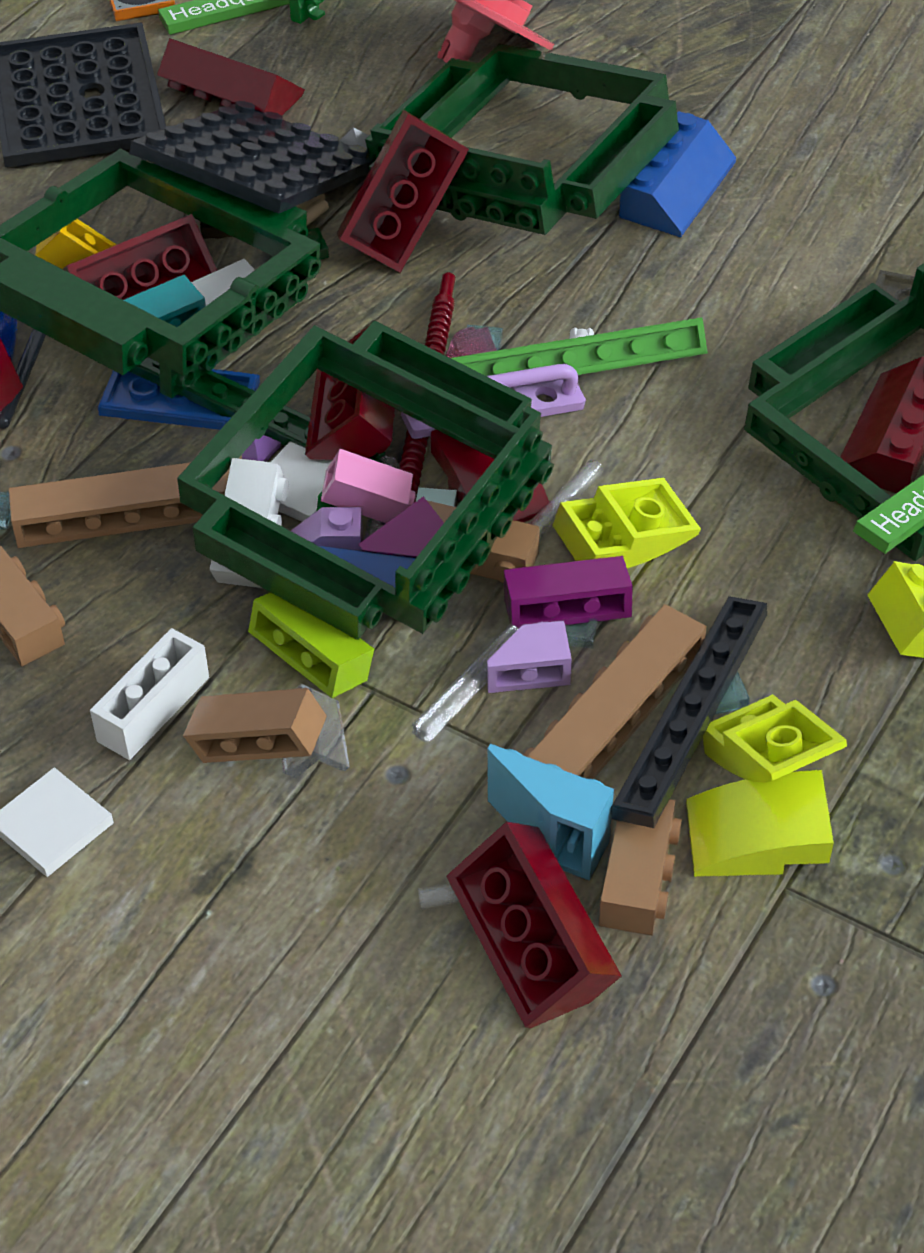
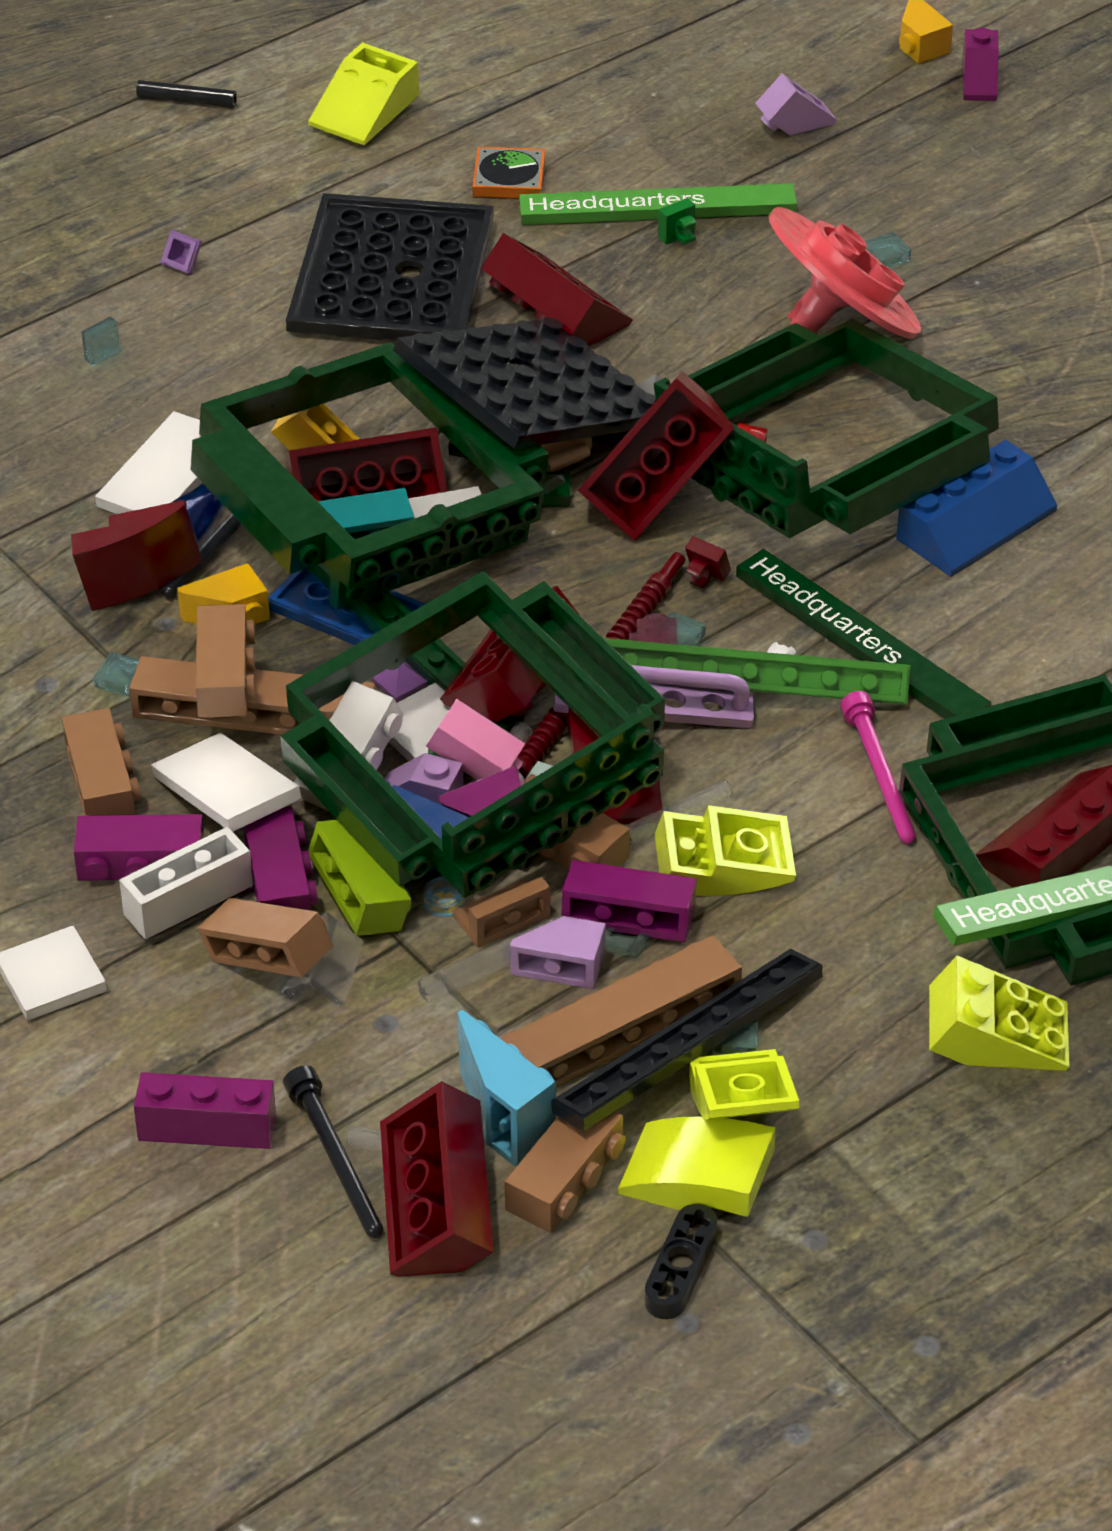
camera: 20 degrees right, 5 degrees down
(61, 416) = (229, 587): none -> yellow slope
(79, 670) = (123, 844): none -> magenta brick
(95, 471) = (224, 660): none -> medium nougat brick
(144, 585) = (226, 782): none -> white tile
(231, 651) = (279, 863): none -> magenta brick
(273, 917) = (205, 1110): none -> magenta brick
(355, 864) = (305, 1088): none -> black piece
(392, 637) = (441, 897): none -> clear tile
(455, 634) = (504, 911): none -> medium nougat panel
(476, 273) = (706, 561): none -> dark red tile
(635, 304) = (857, 633): none -> dark green tile
(673, 370) = (859, 712): none -> dark pink piece
(782, 942) = (682, 1278): none -> black beam

